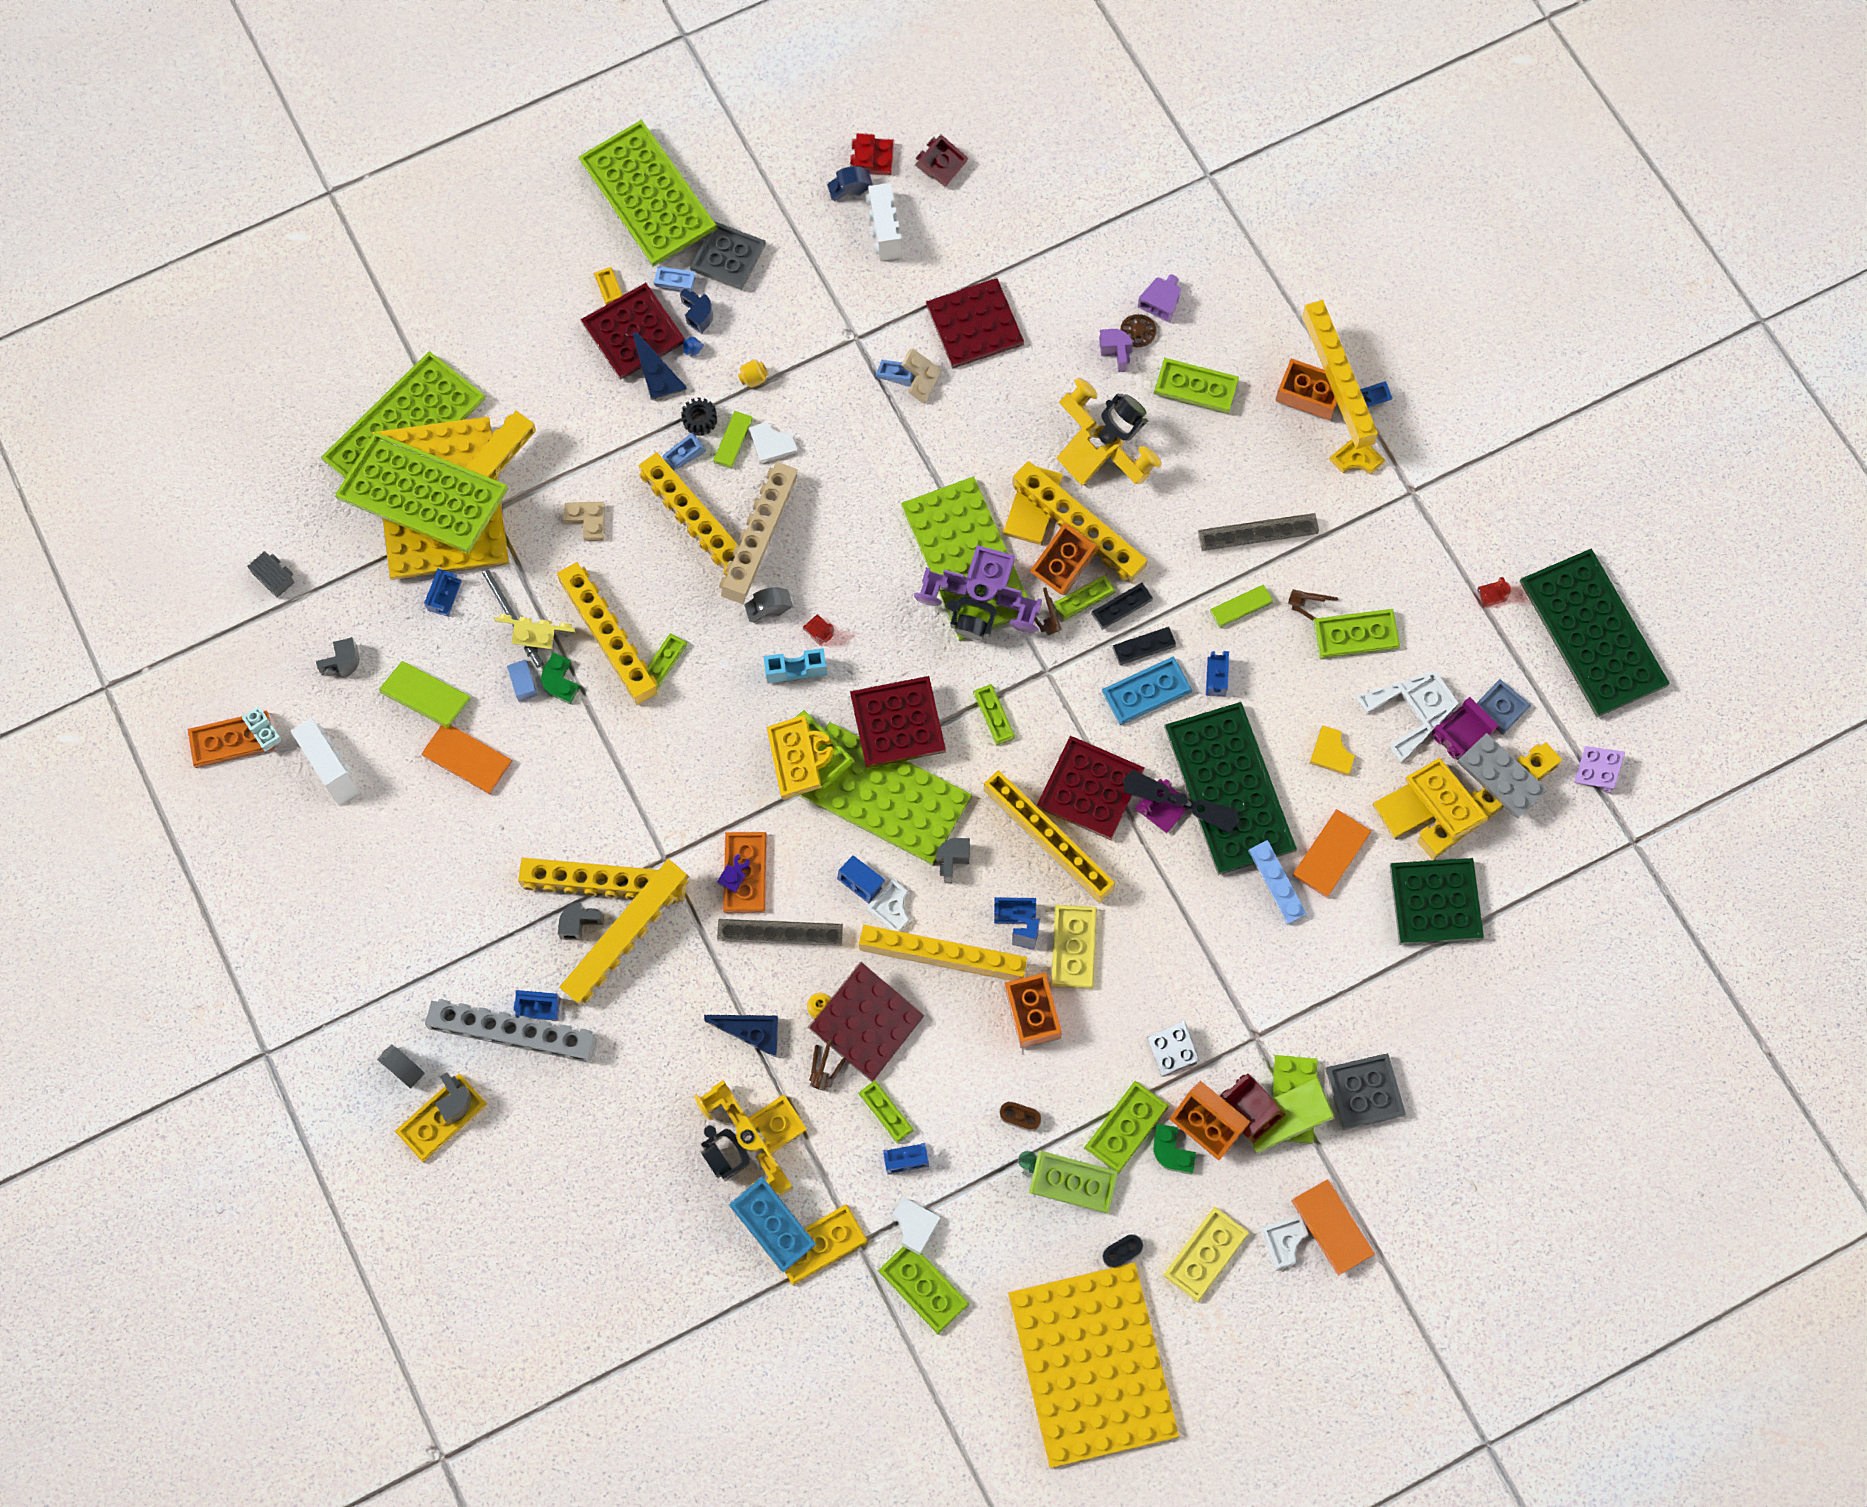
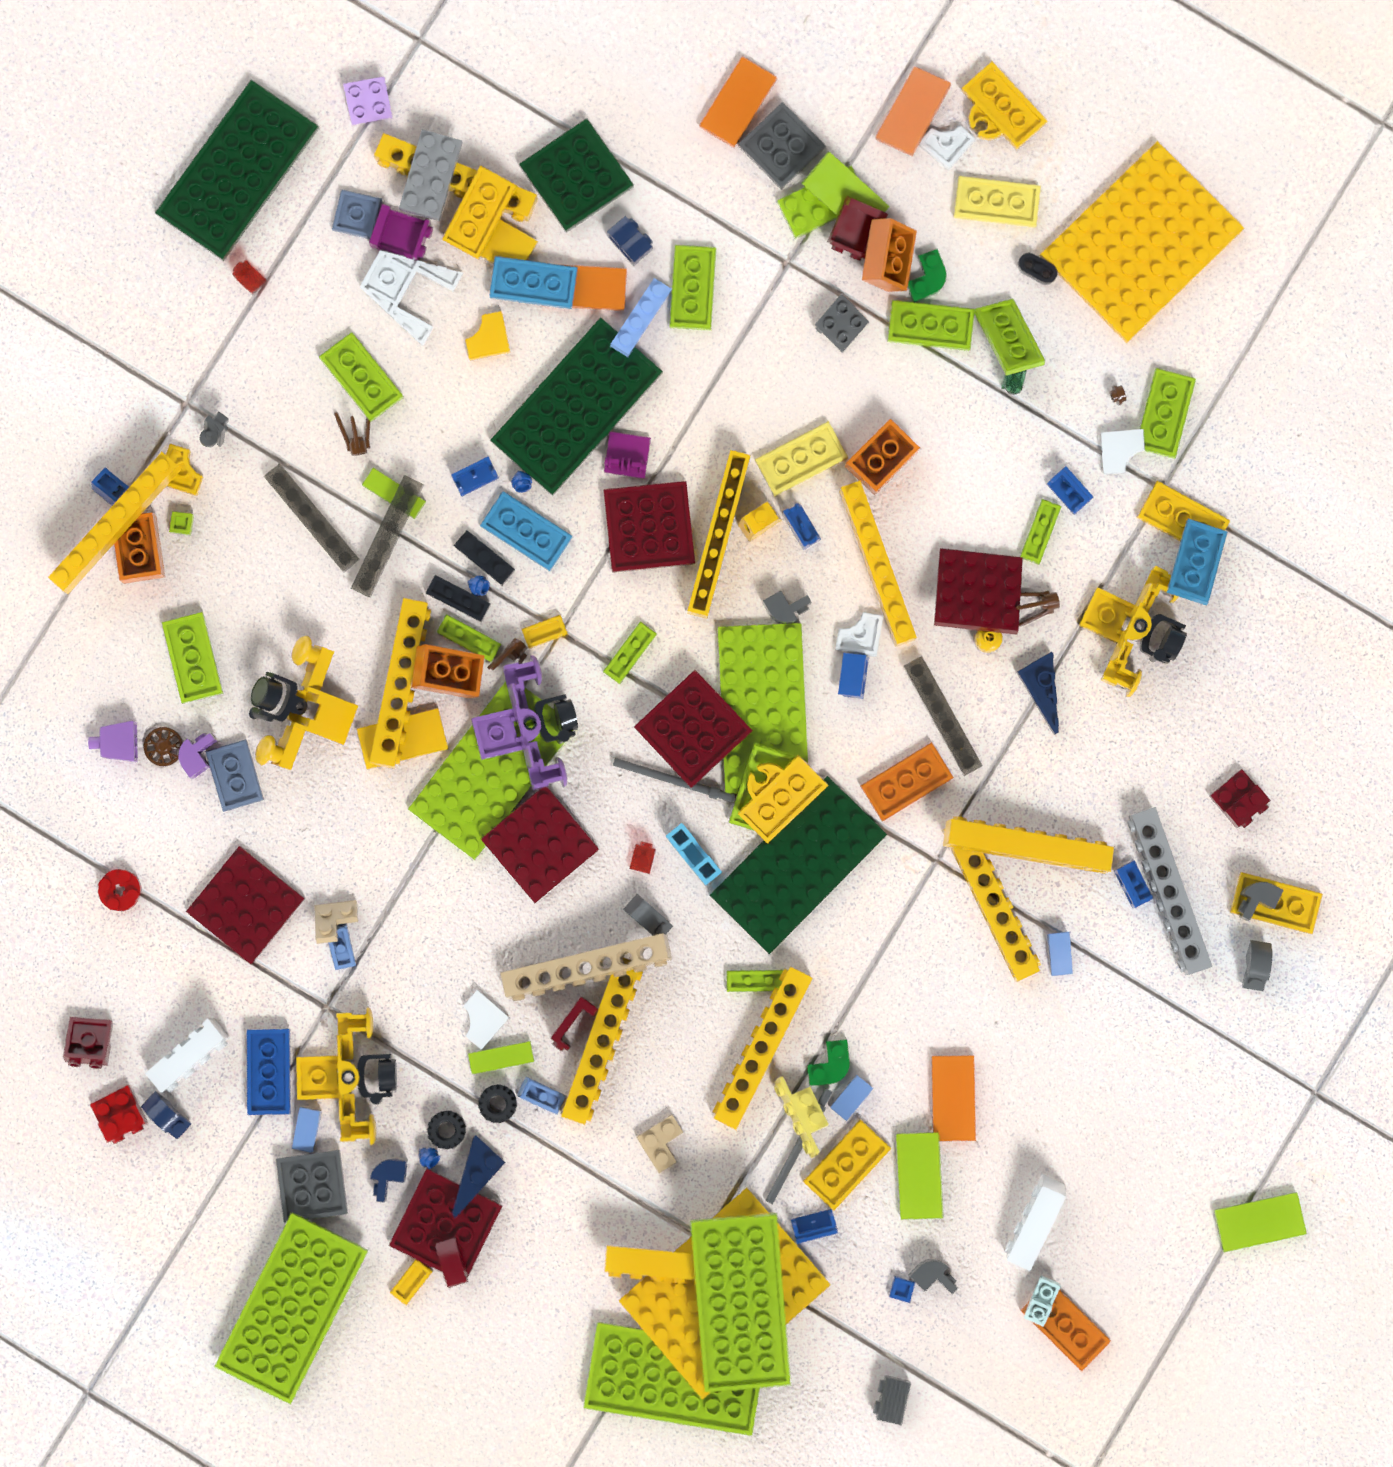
camera: 130 degrees left, 15 degrees up
(197, 941) = (1260, 1222): none -> lime tile
(348, 630) = (902, 1289): none -> blue tile
(472, 646) = (847, 1164): none -> yellow tile
(523, 911) = (1060, 953): none -> medium blue slope
(546, 1140) = (1240, 799): none -> dark red plate
(574, 917) = (1040, 902): dark grey brick -> none
(599, 313) = (451, 1263): none -> dark red slope
(674, 278) = (367, 1221): light blue plate -> none
(704, 380) = (437, 1139): none -> black tyre
(727, 515) = (581, 1004): none -> dark red panel
(732, 746) = (798, 867): none -> dark green plate
(733, 876) = (920, 787): dark purple plate -> none
(753, 373) = (424, 1080): yellow head -> none
(774, 275) = (306, 1129): none -> medium blue slope
(802, 307) = (325, 1077): none -> yellow piece
(834, 271) = (268, 1072): none -> blue plate
(837, 713) = (713, 792): none -> dark grey bar
(881, 557) = (539, 844): none -> dark red plate
(965, 1252) = (1118, 394): none -> reddish brown plate
(1020, 1116) = (977, 417): reddish brown plate -> none
(1026, 936) = (817, 498): blue hinge -> none
(1040, 878) = (759, 521): none -> yellow torso
(1044, 232) = (130, 894): none -> red plate
(1053, 658) = (544, 631): none -> yellow tile
(1084, 364) = (234, 775): none -> sand blue tile
(1122, 627) = (479, 585): none -> blue plate
(1191, 707) = (521, 482): none -> blue plate
(1207, 578) = (387, 536): none -> clear smoke plate
(1214, 814) = (626, 473): black piece -> none
(1279, 943) = (692, 287): none -> lime tile
(1291, 1309) = (1001, 108): none -> yellow plate
(1312, 434) = (181, 523): none -> lime plate
(1351, 911) = (629, 240): none -> dark blue brick
(1359, 811) = (533, 282): none -> dark azure tile
(1375, 495) = (214, 430): none -> dark grey hips
(1427, 1078) = (738, 102): none -> orange tile

